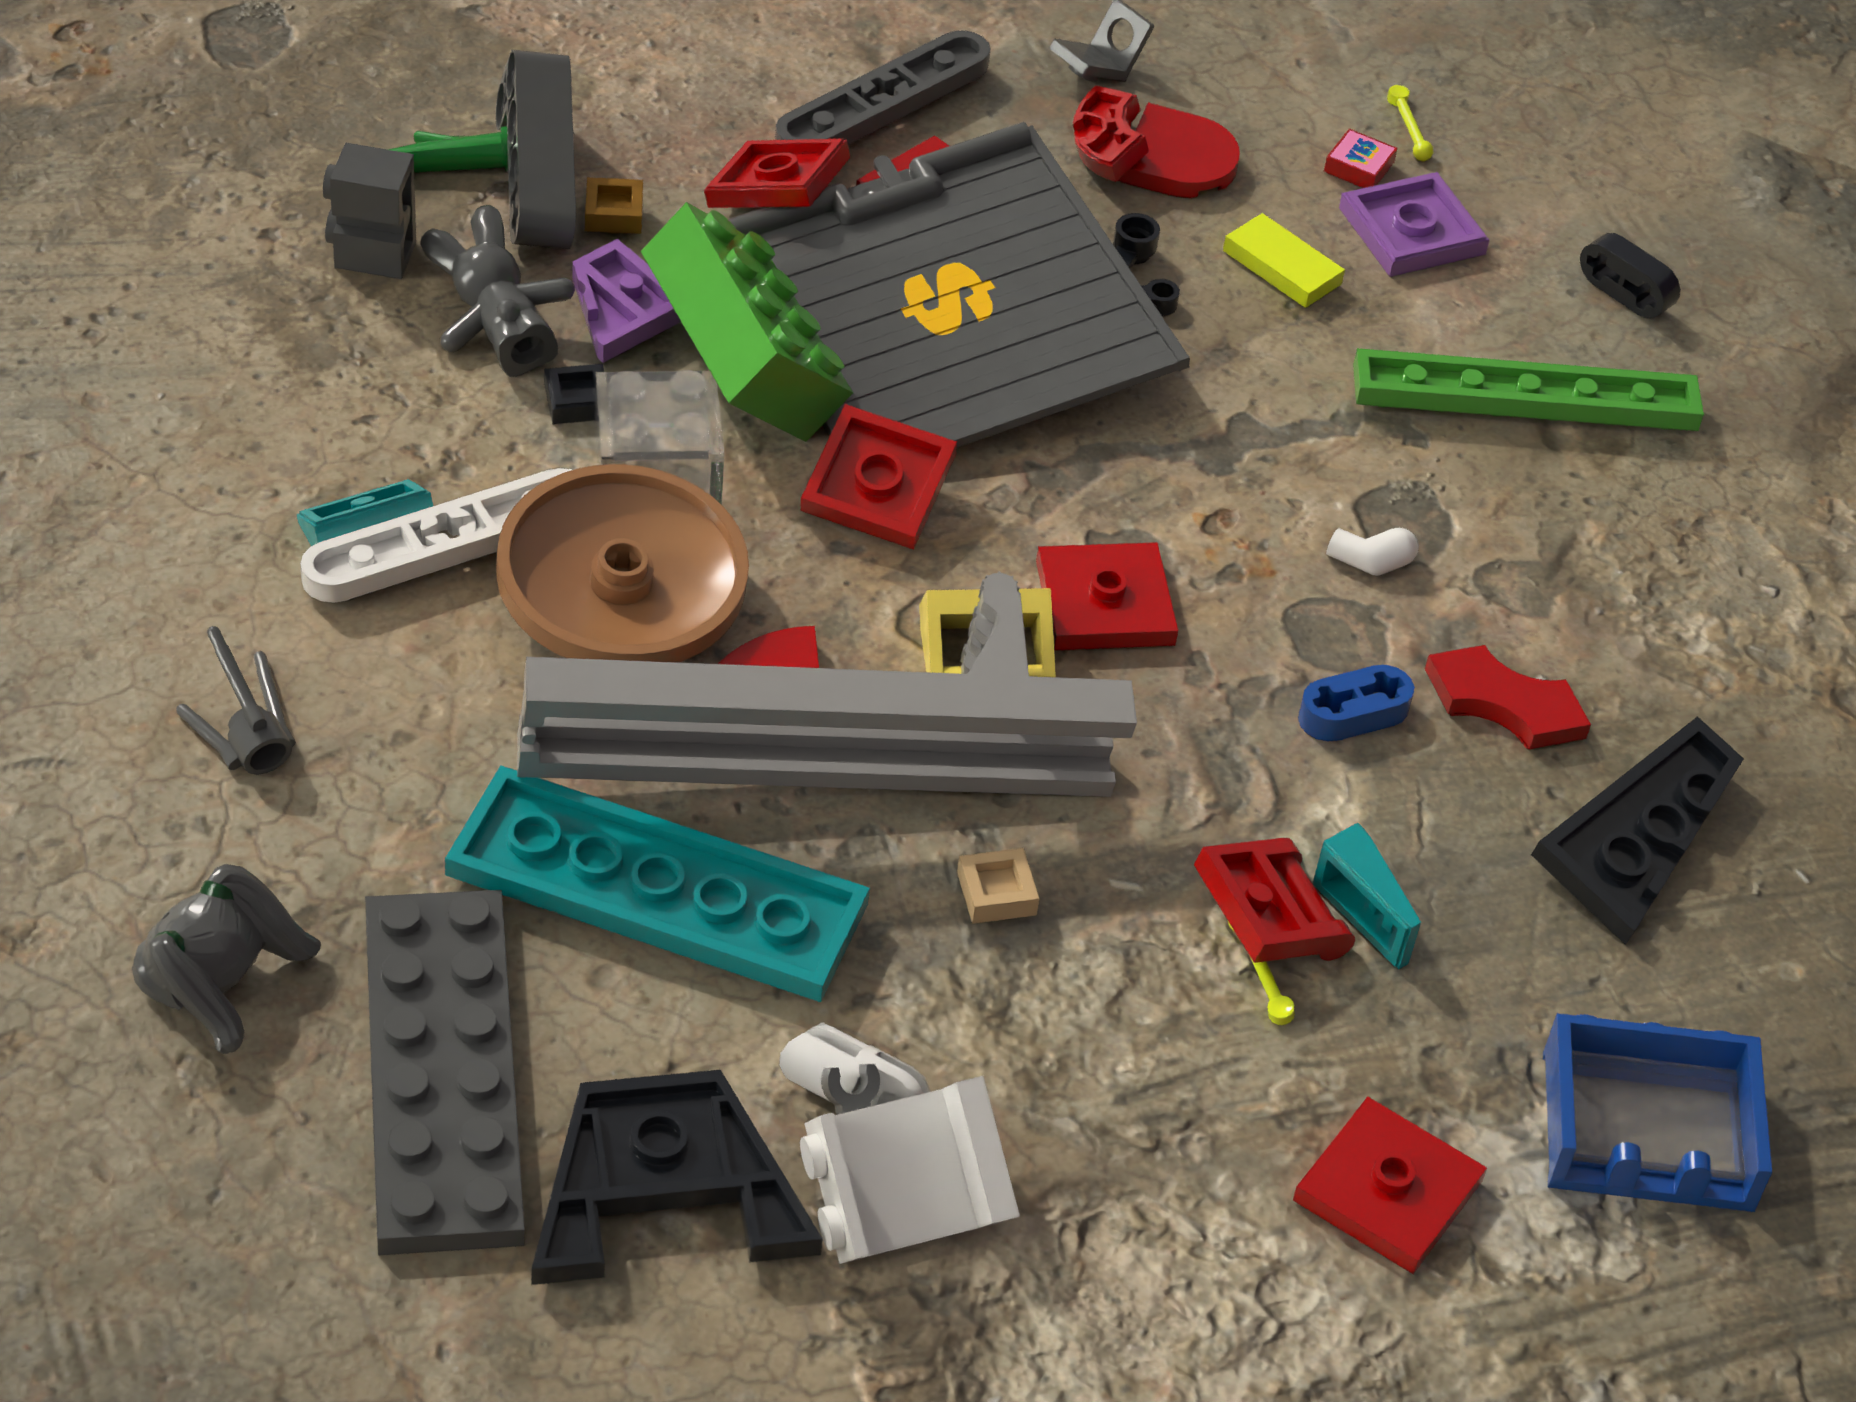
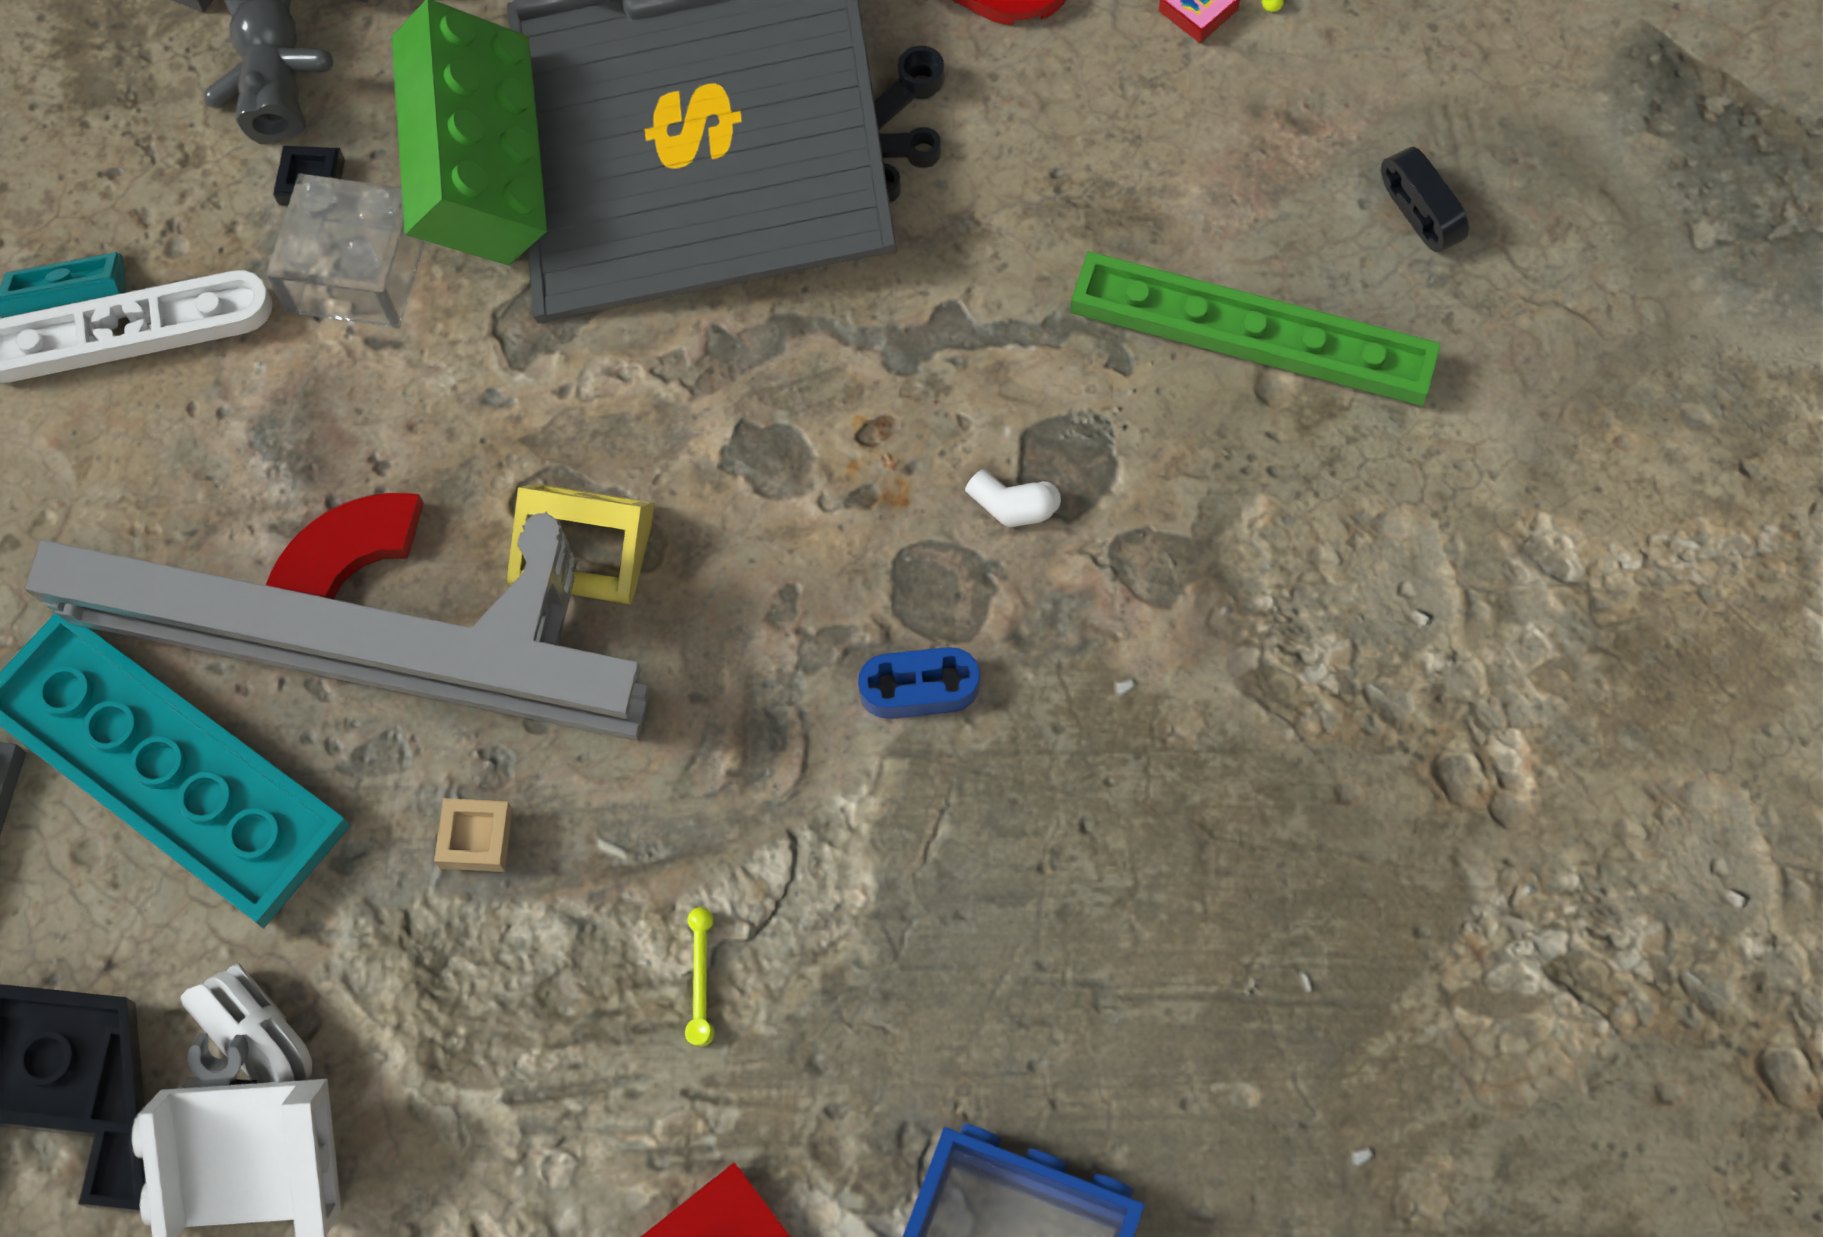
camera: 25 degrees right, 20 degrees up
(620, 299) = (370, 76): medium lavender wing -> none
(622, 565) = (250, 401): medium nougat dish -> none
(878, 476) = (542, 330): red plate -> none
(1107, 596) = (721, 506): red plate -> none
(1272, 901) = (711, 912): red plate -> none
(1283, 260) = (1066, 120): neon yellow tile -> none
(1367, 894) = (824, 902): teal slope -> none
(1413, 224) = (1224, 93): medium lavender tile -> none
(1531, 708) = (1101, 724): red tile -> none
(1638, 828) = (1138, 903): black wing -> none

